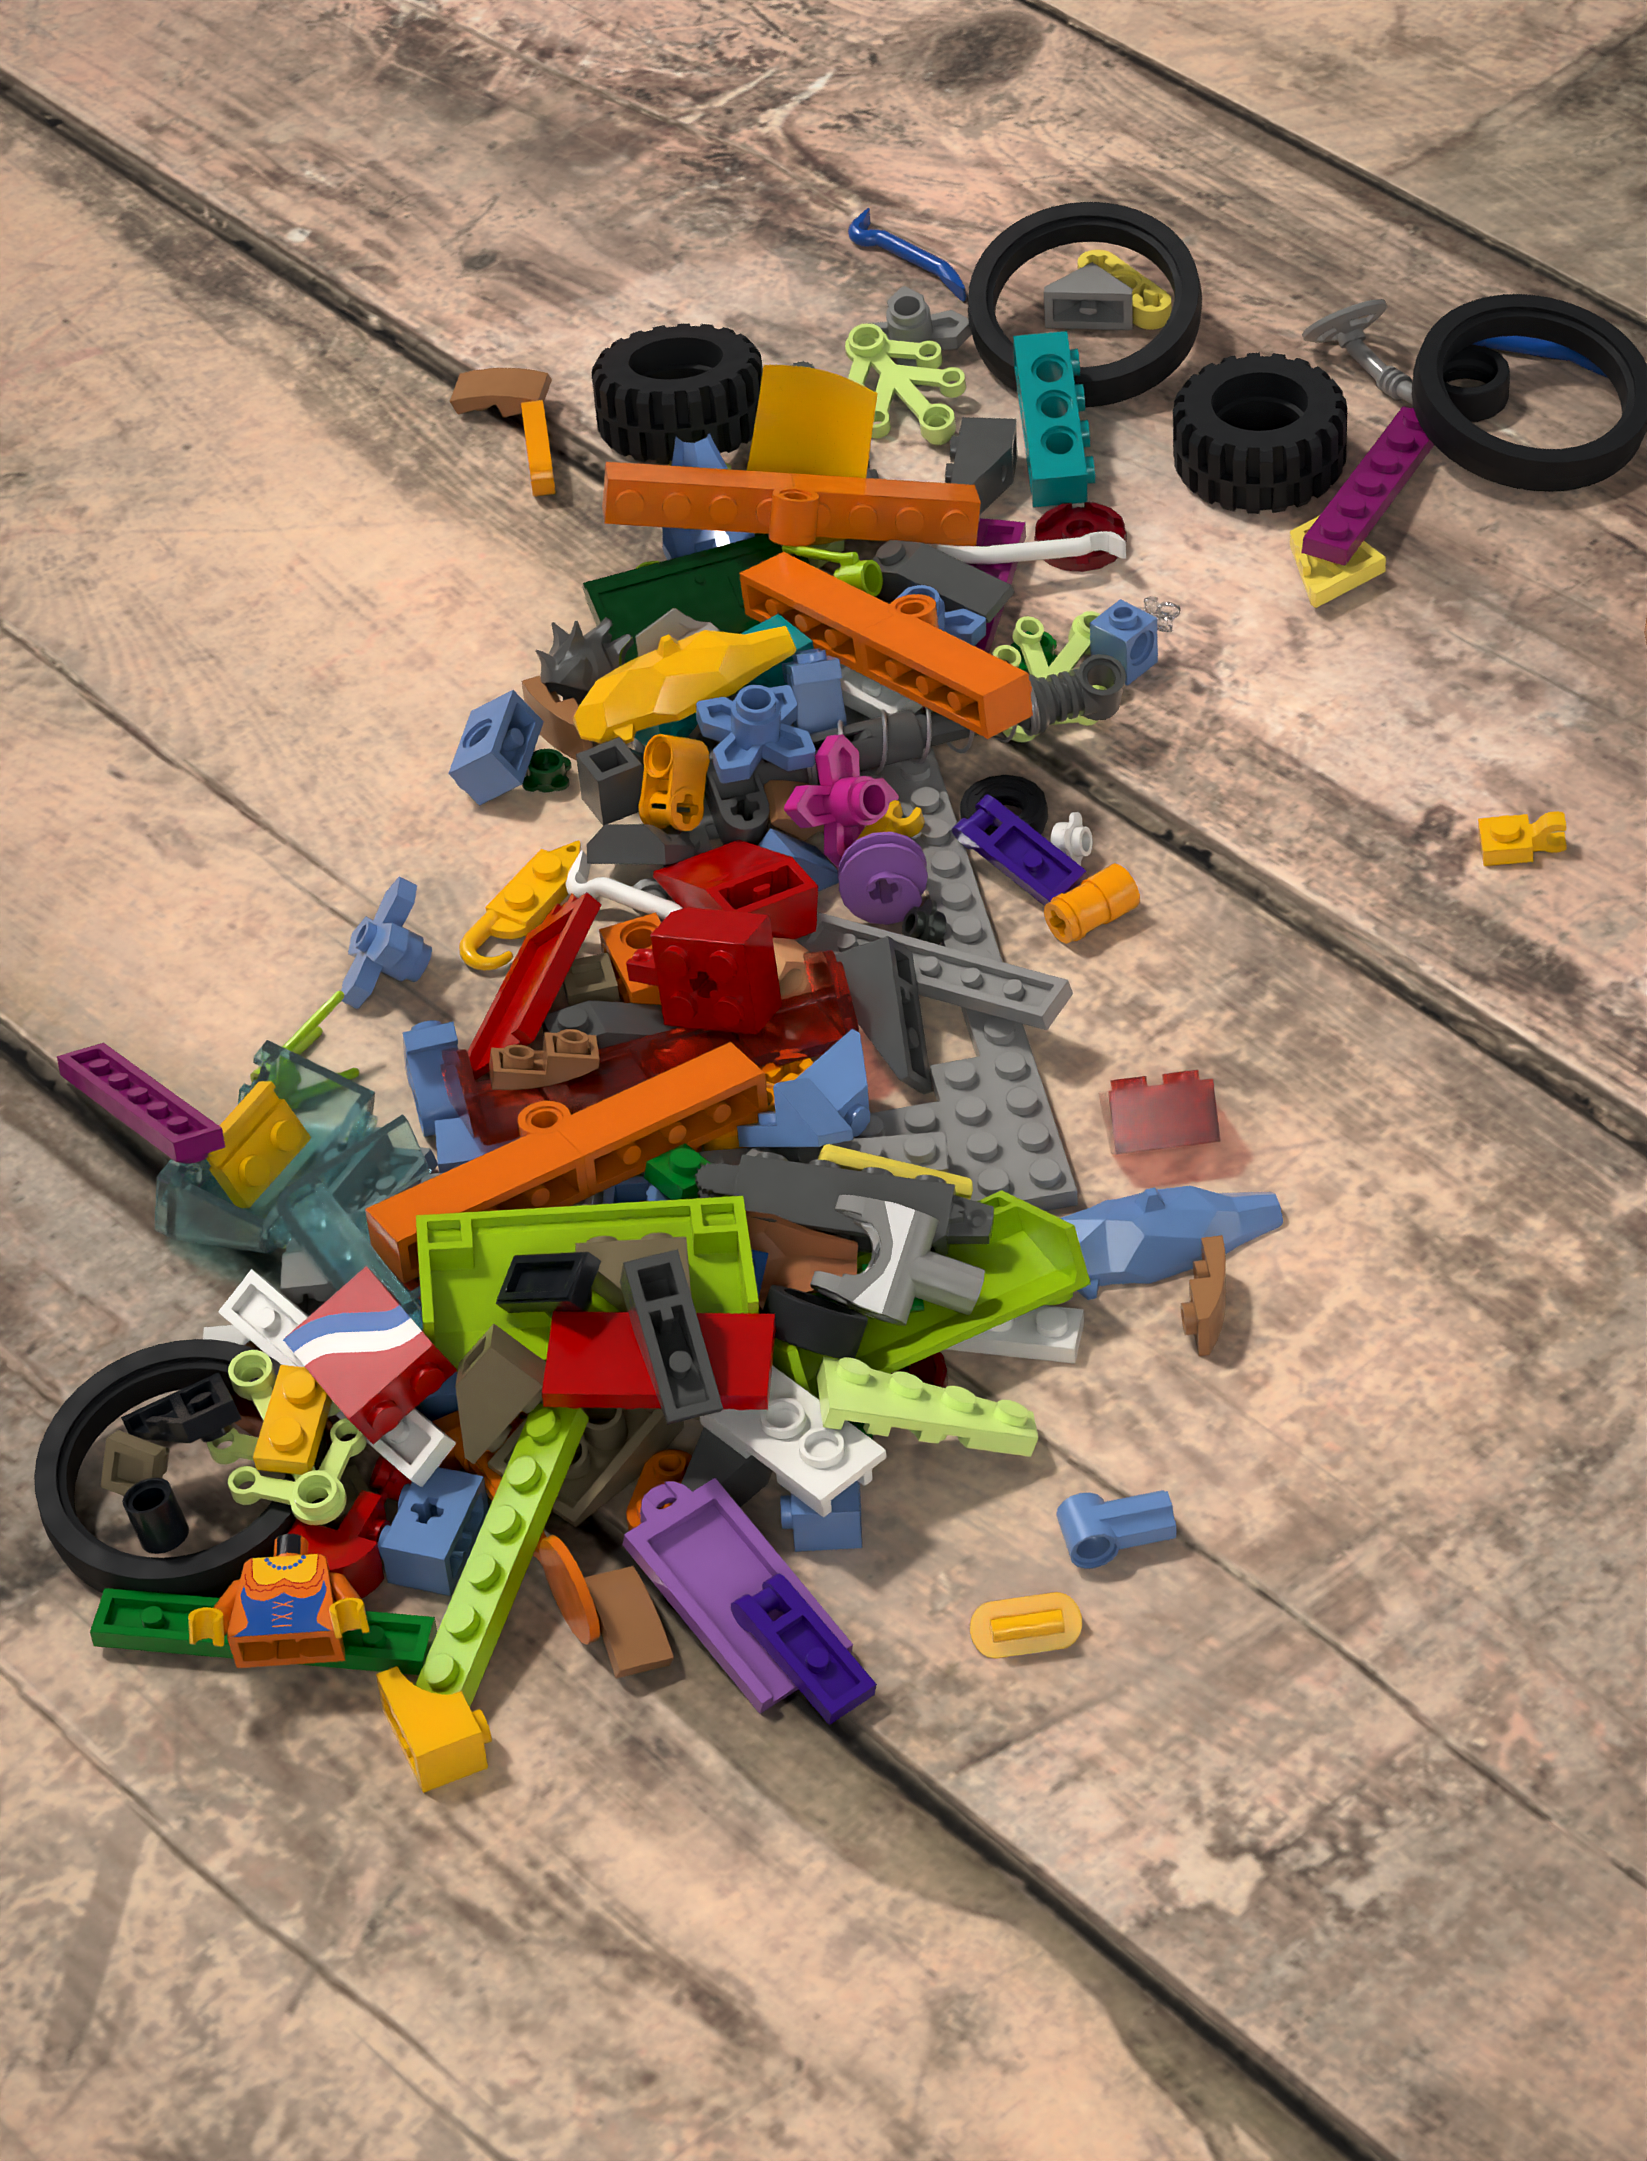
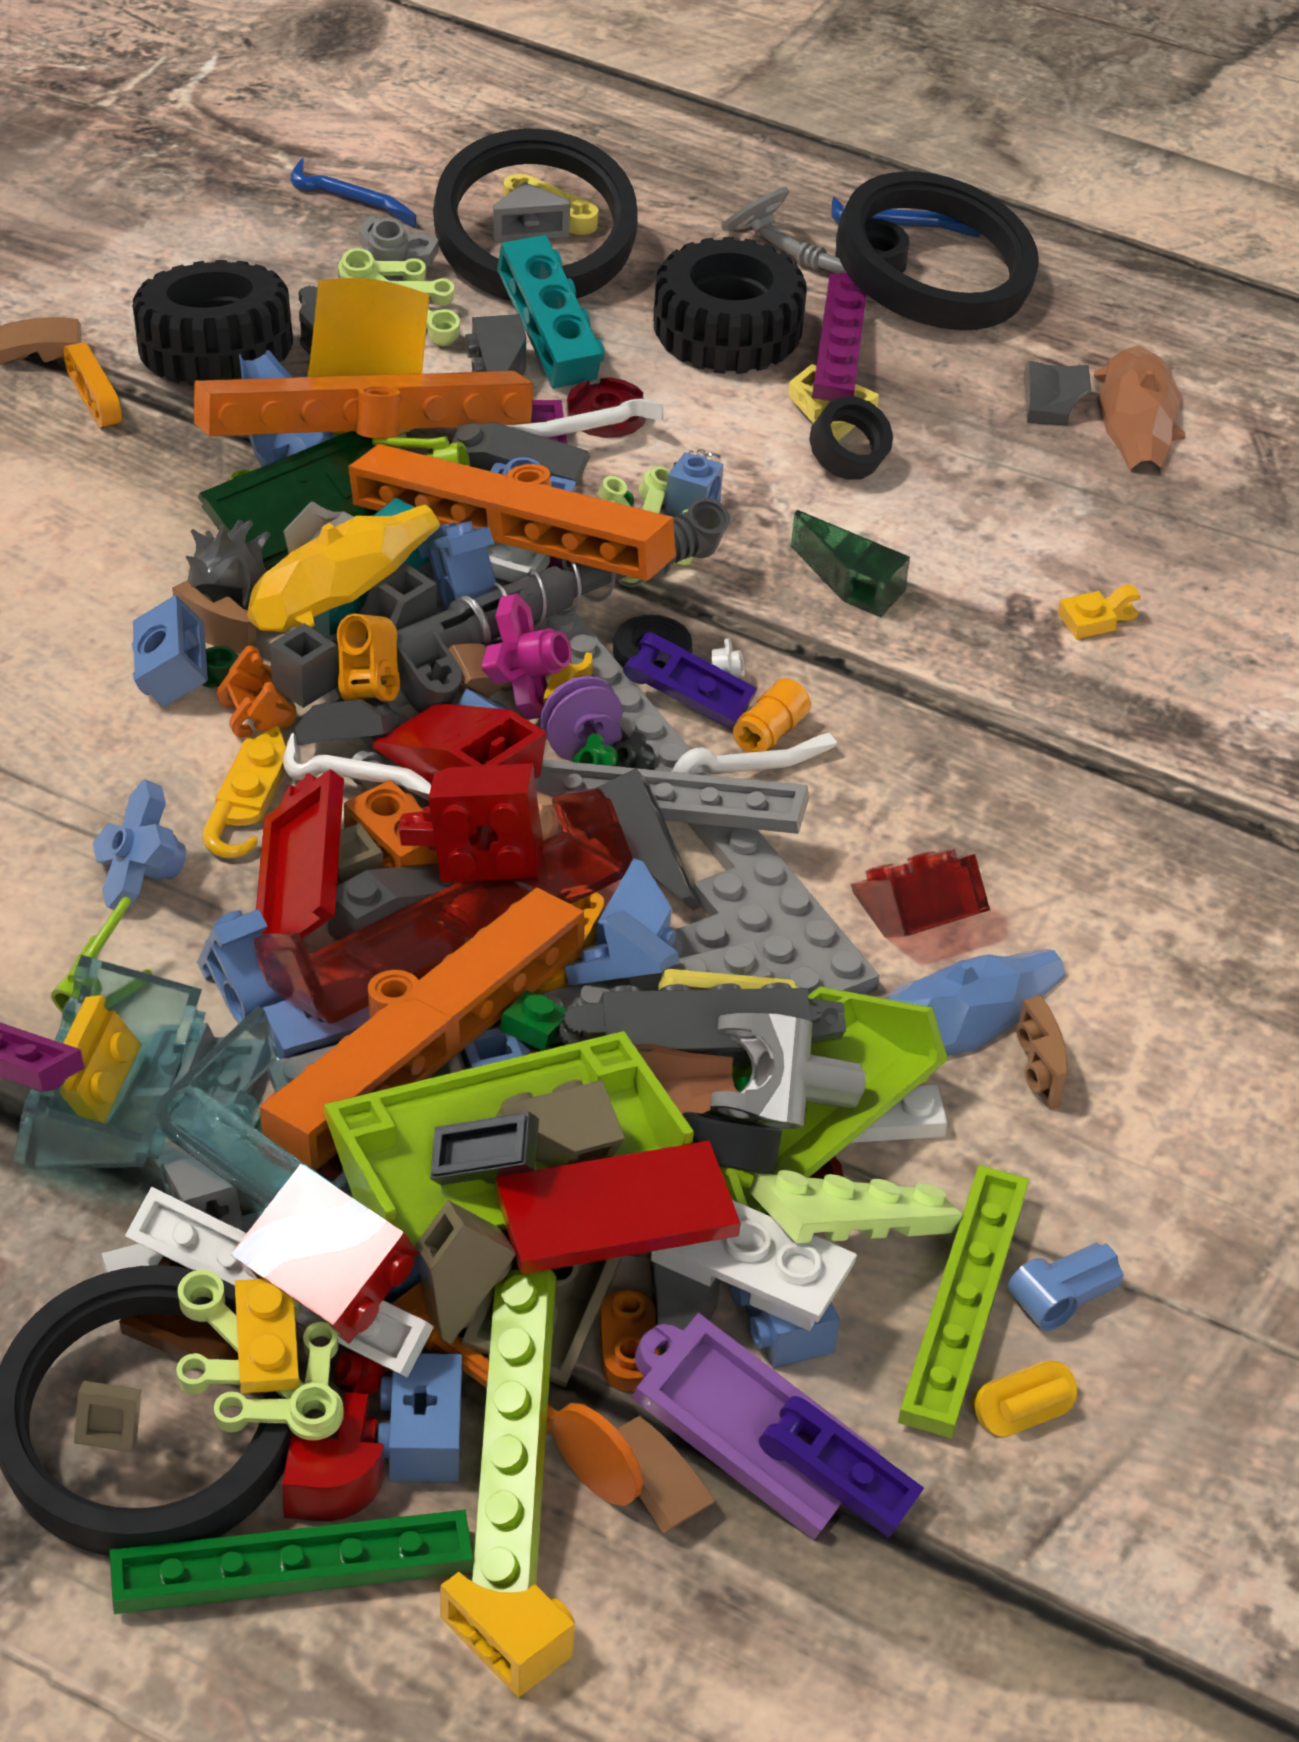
camera: 25 degrees left, 0 degrees up
(155, 1515) = (151, 1463): black beam -> none
(190, 1414) = (149, 1349): black wing -> none
(283, 1610) = (328, 1535): torso -> none
(561, 807) = (254, 696): none -> orange piece
(563, 1058) = (363, 931): medium nougat slope -> none
(670, 1336) = (633, 1181): dark grey slope -> none
(753, 729) = (432, 602): medium blue plant -> none
(886, 916) = (597, 753): none -> green plate
(1006, 1521) = (963, 1302): none -> lime plate
(1050, 947) = (753, 760): none -> white piece
(1265, 754) = (851, 565): none -> clear green slope
(1338, 575) = (867, 419): none -> black tyre
(1594, 574) = (1053, 391): none -> dark grey slope

